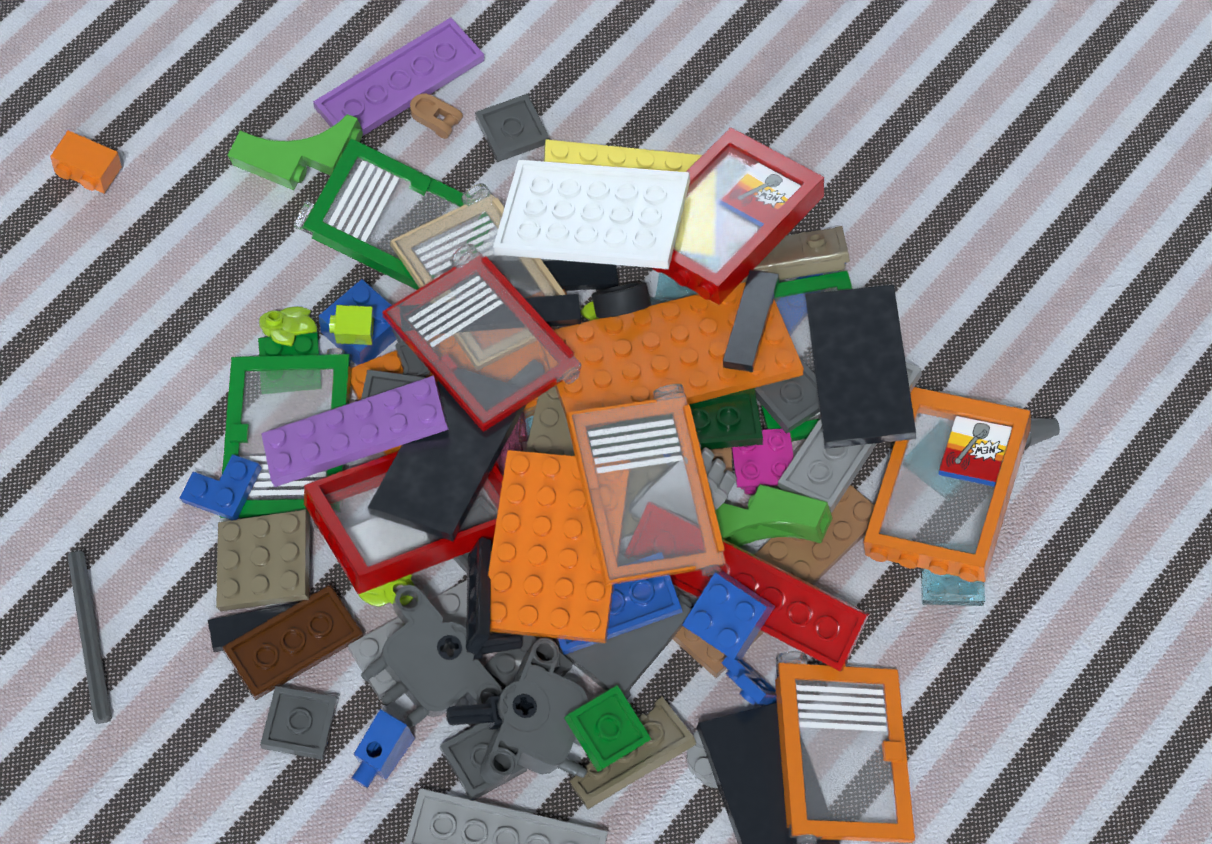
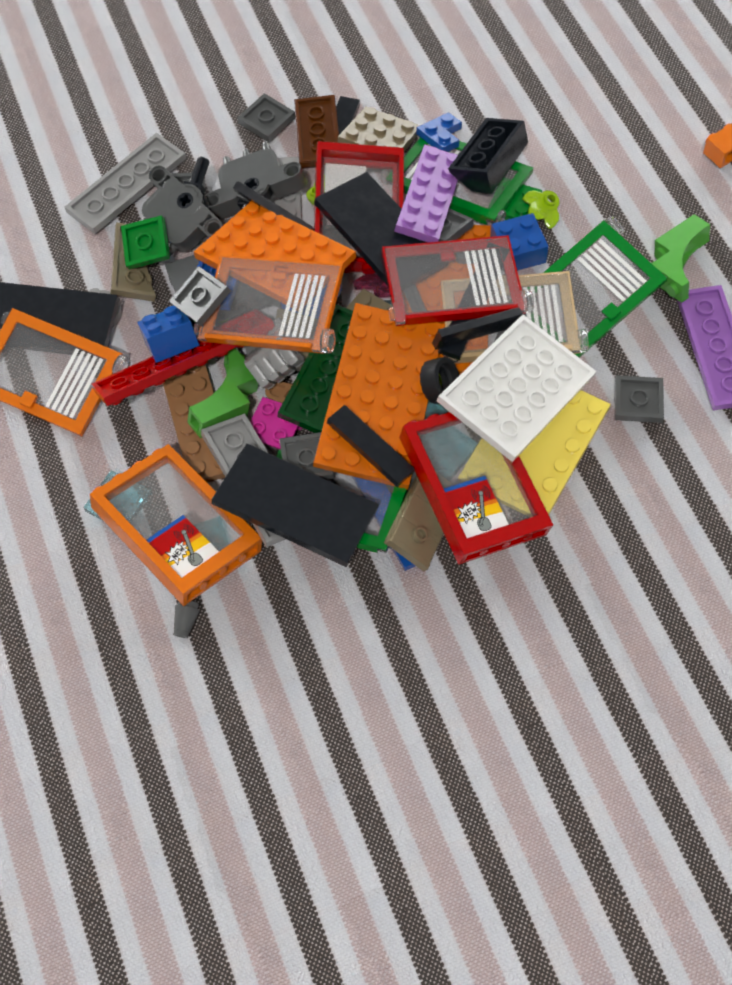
camera: 125 degrees right, 0 degrees up
(89, 637) = (387, 48): dark grey axle -> none
(252, 394) = (490, 154): none -> black slope
(352, 325) = (507, 217): lime brick -> none
(386, 737) = (220, 136): blue torso -> none
(425, 110) = (682, 353): medium nougat plate -> none
(541, 284) = (475, 328): none -> black tile
(678, 575) = (200, 296): none -> plate
(753, 685) = (115, 337): blue plate -> none

